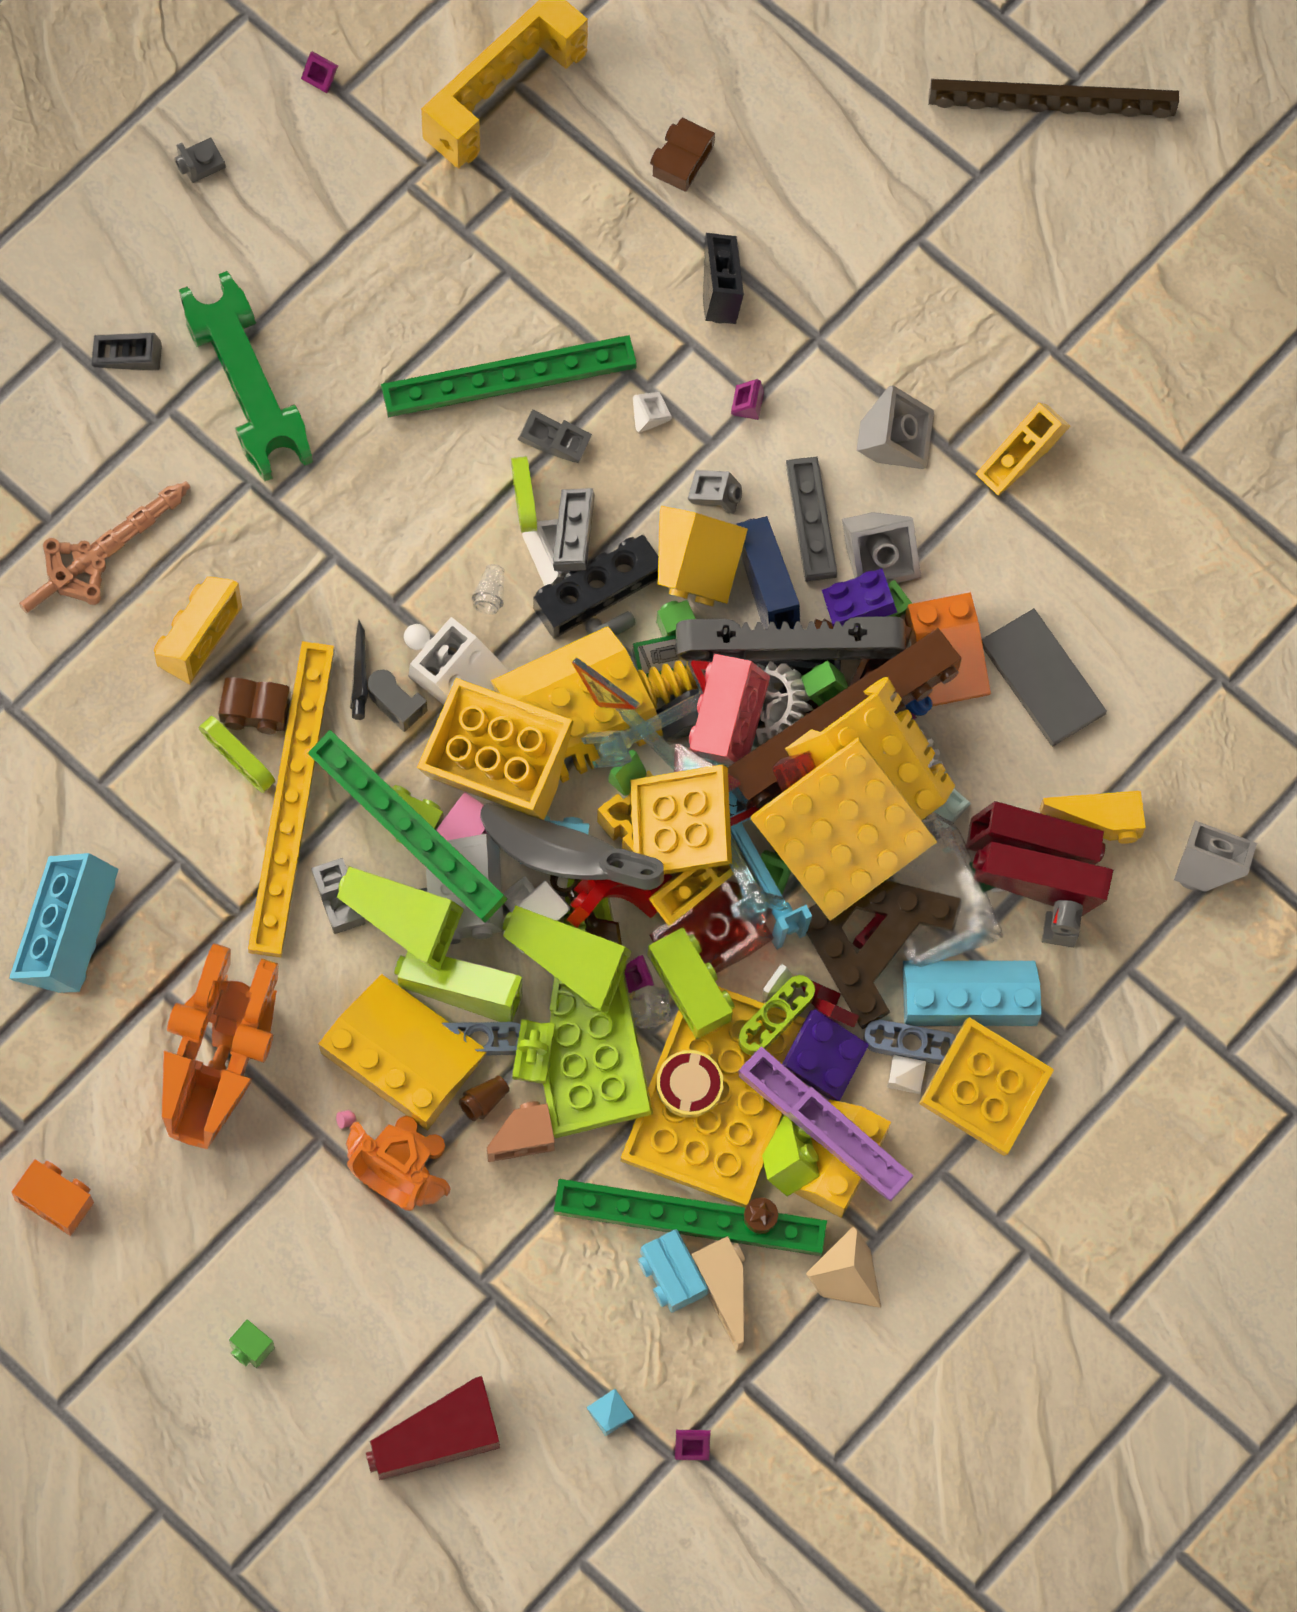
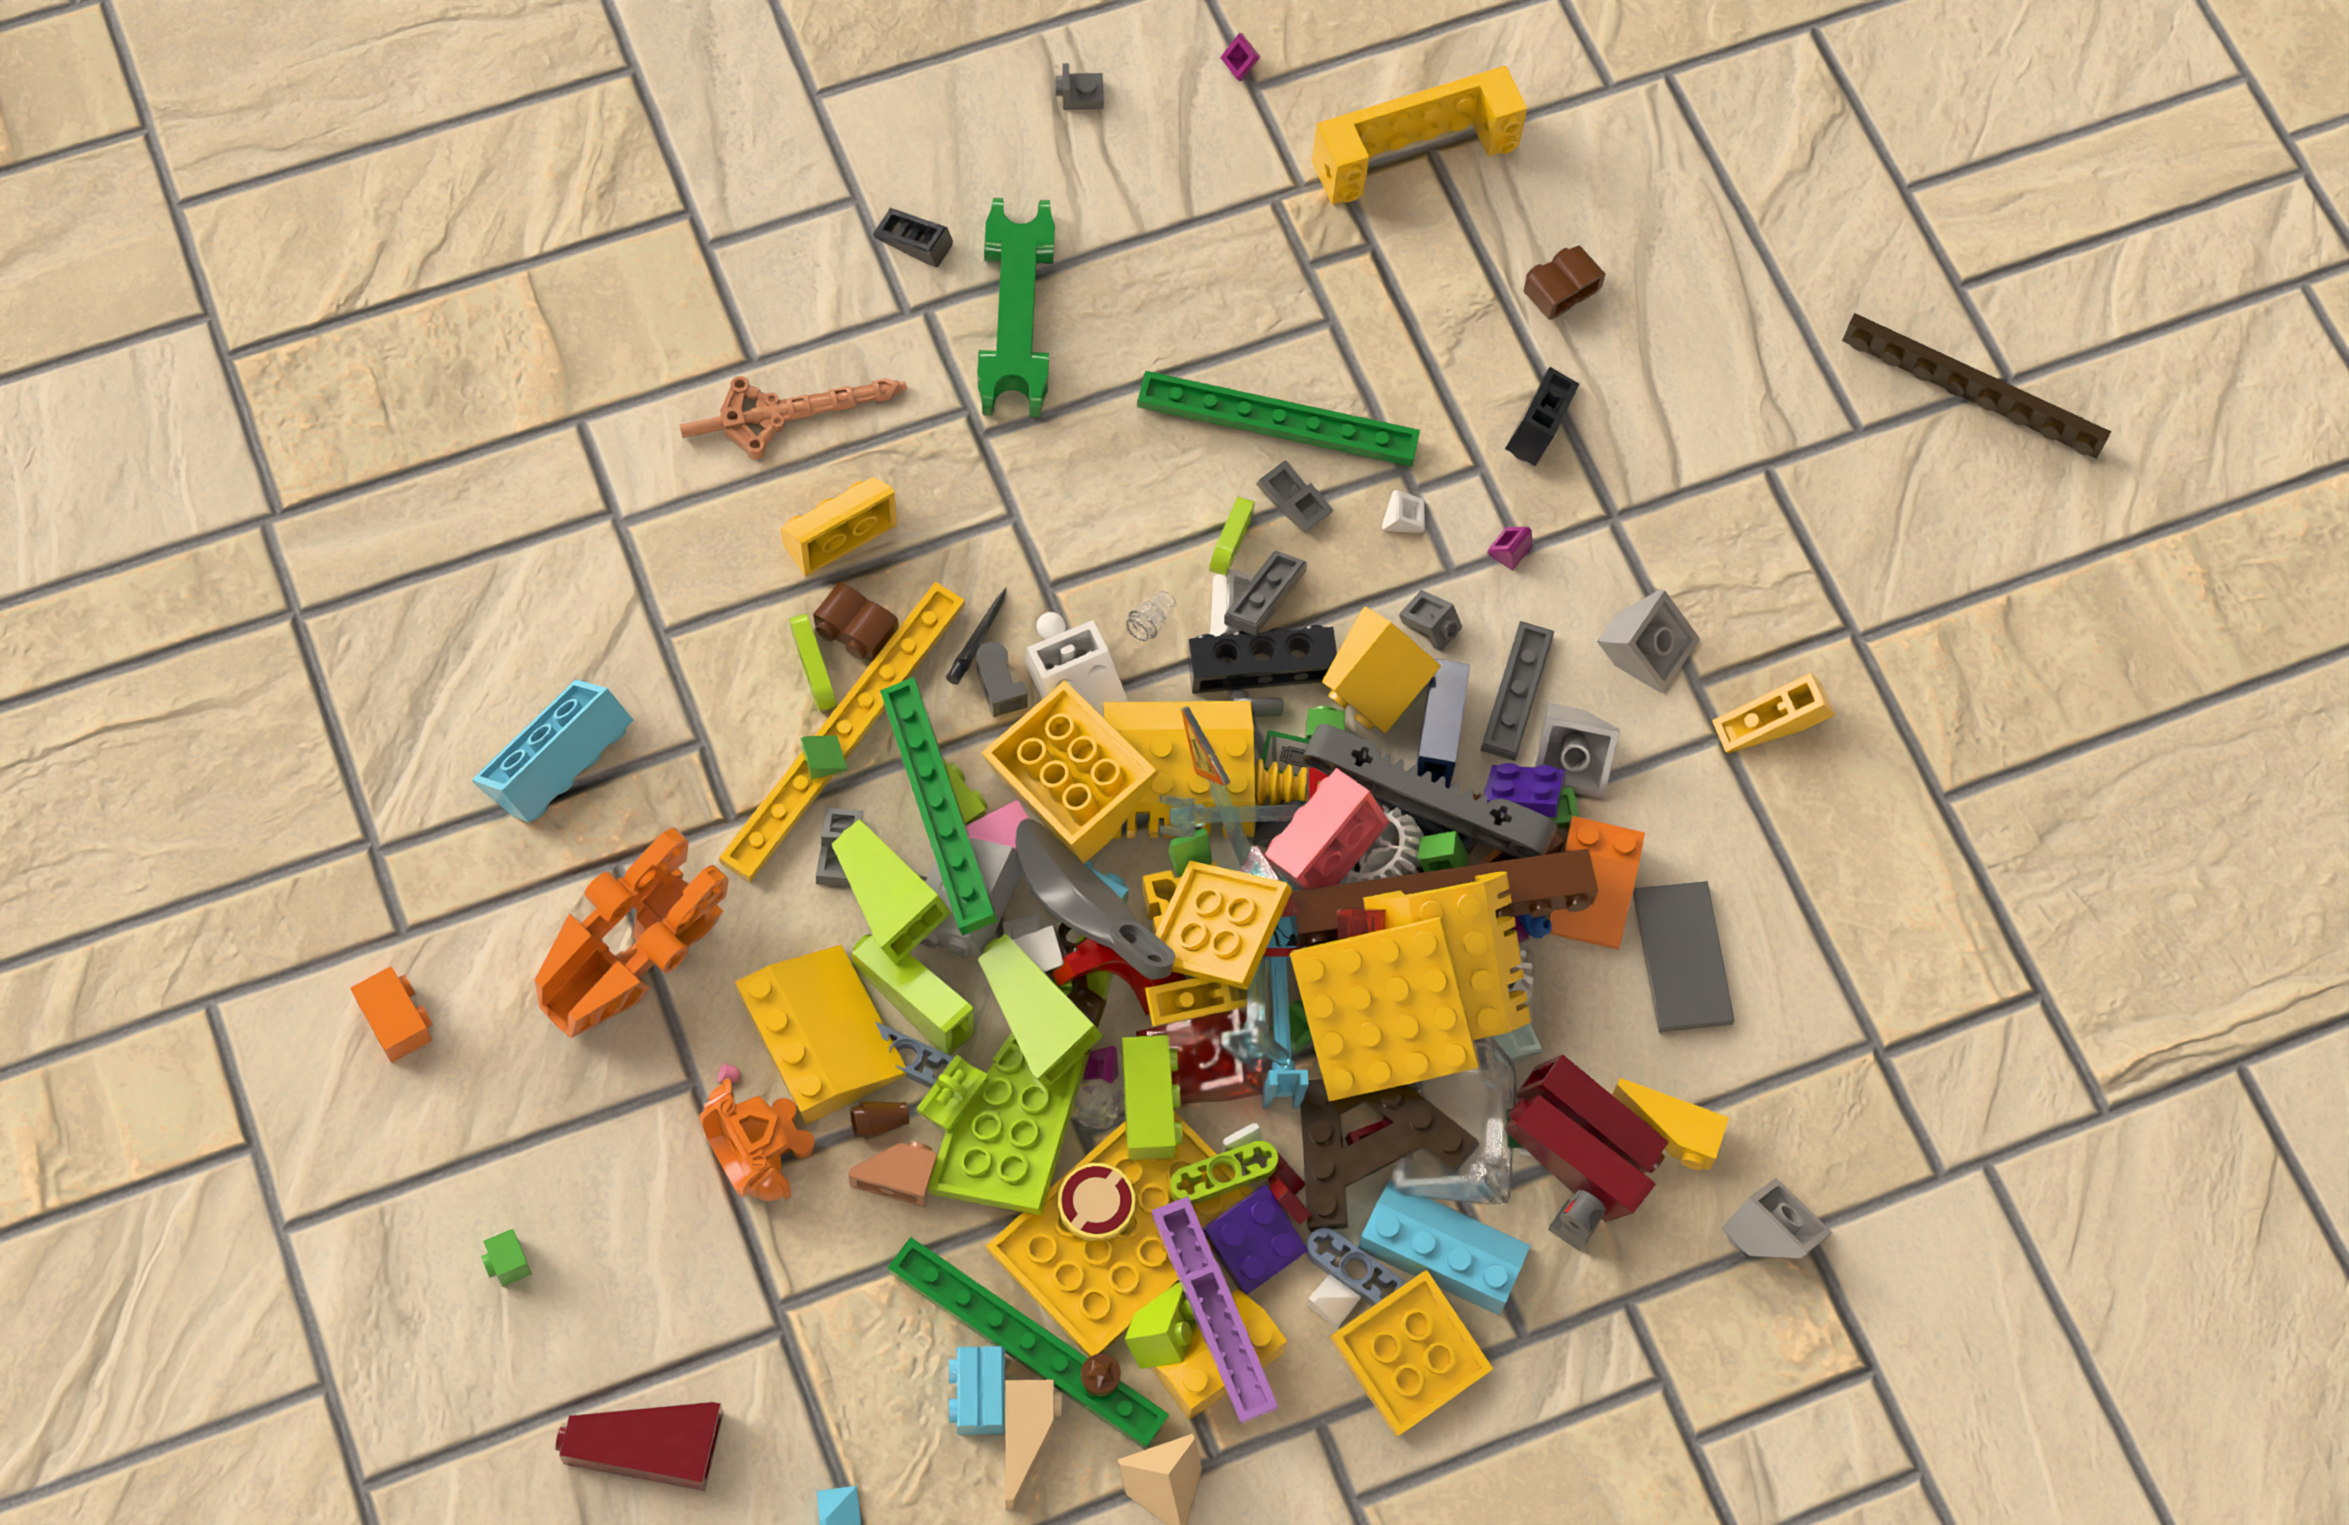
camera: 25 degrees right, 5 degrees down
(288, 828) = (822, 755): none -> bright green slope

